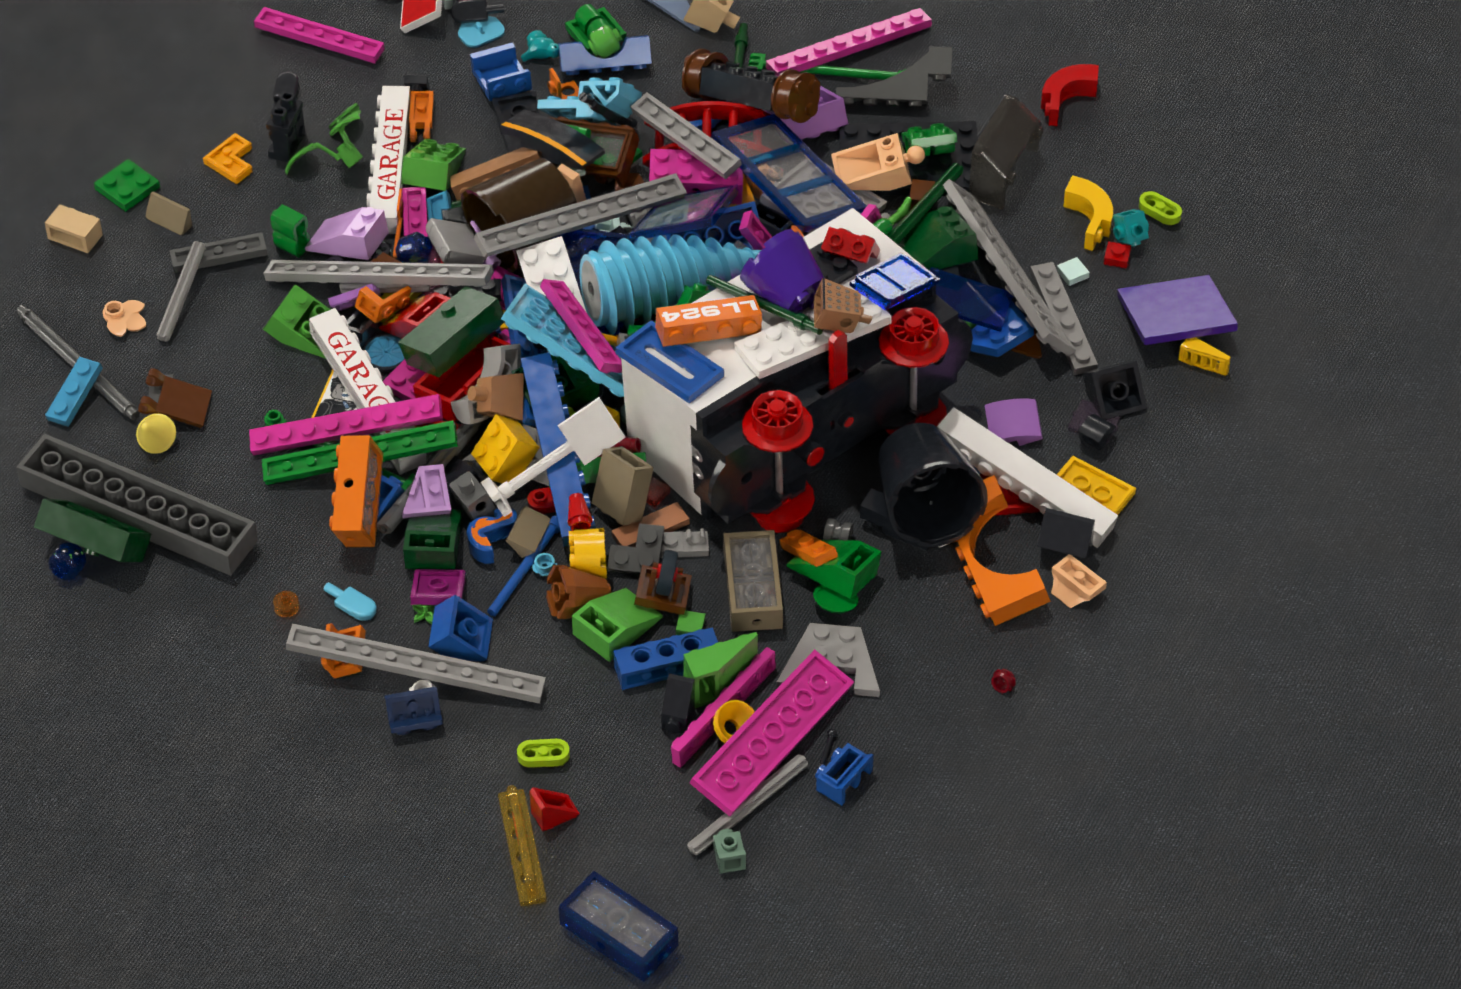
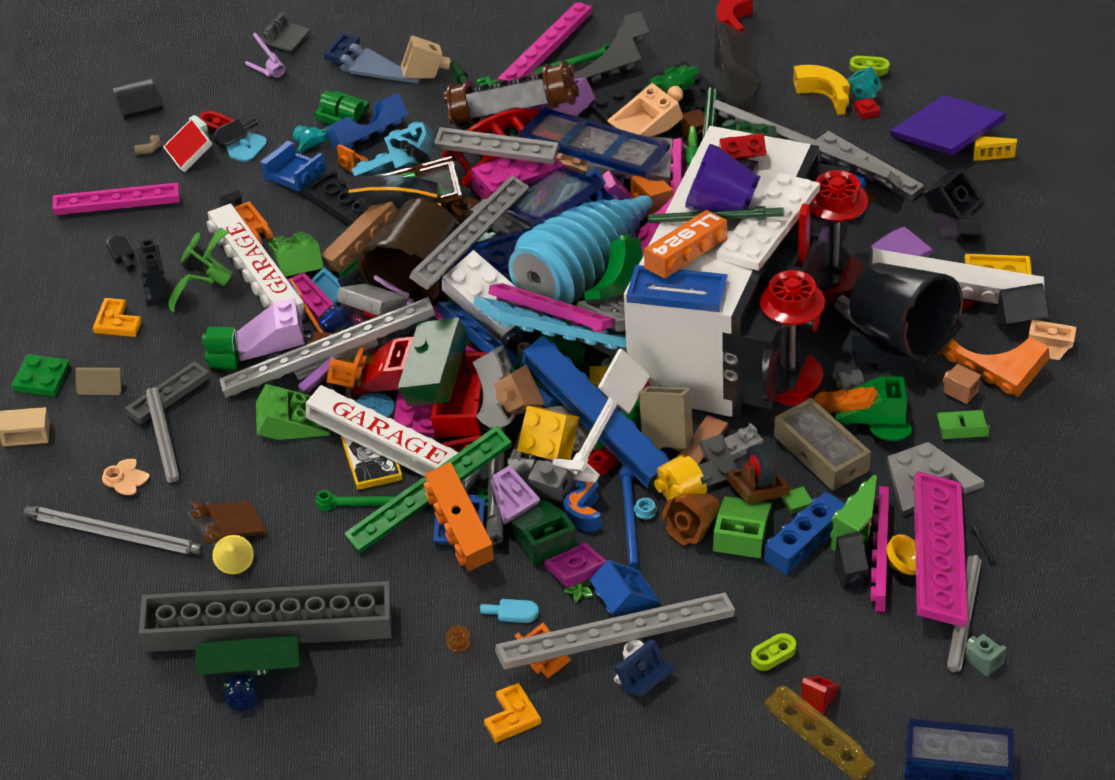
camera: 30 degrees left, 5 degrees down
(74, 391) = (131, 553): dark azure plate -> none
(280, 699) = (517, 714): none -> light orange tile
(347, 423) = (398, 473): dark pink plate -> none
(527, 531) = (614, 489): dark tan slope -> none
(578, 512) = (655, 451): red cone -> none
(605, 41) = (364, 110): bright green head -> none
(834, 788) = (1014, 567): blue window -> none
(839, 308) = (784, 188): medium nougat torso -> none
(893, 281) = (797, 159): clear blue piece -> none
(900, 620) = (973, 420): none -> bright green piece
(941, 585) = (961, 383): none -> nougat brick
(1003, 680) = (1065, 436): dark red plate -> none
(1072, 271) = (847, 131): light aqua tile -> none

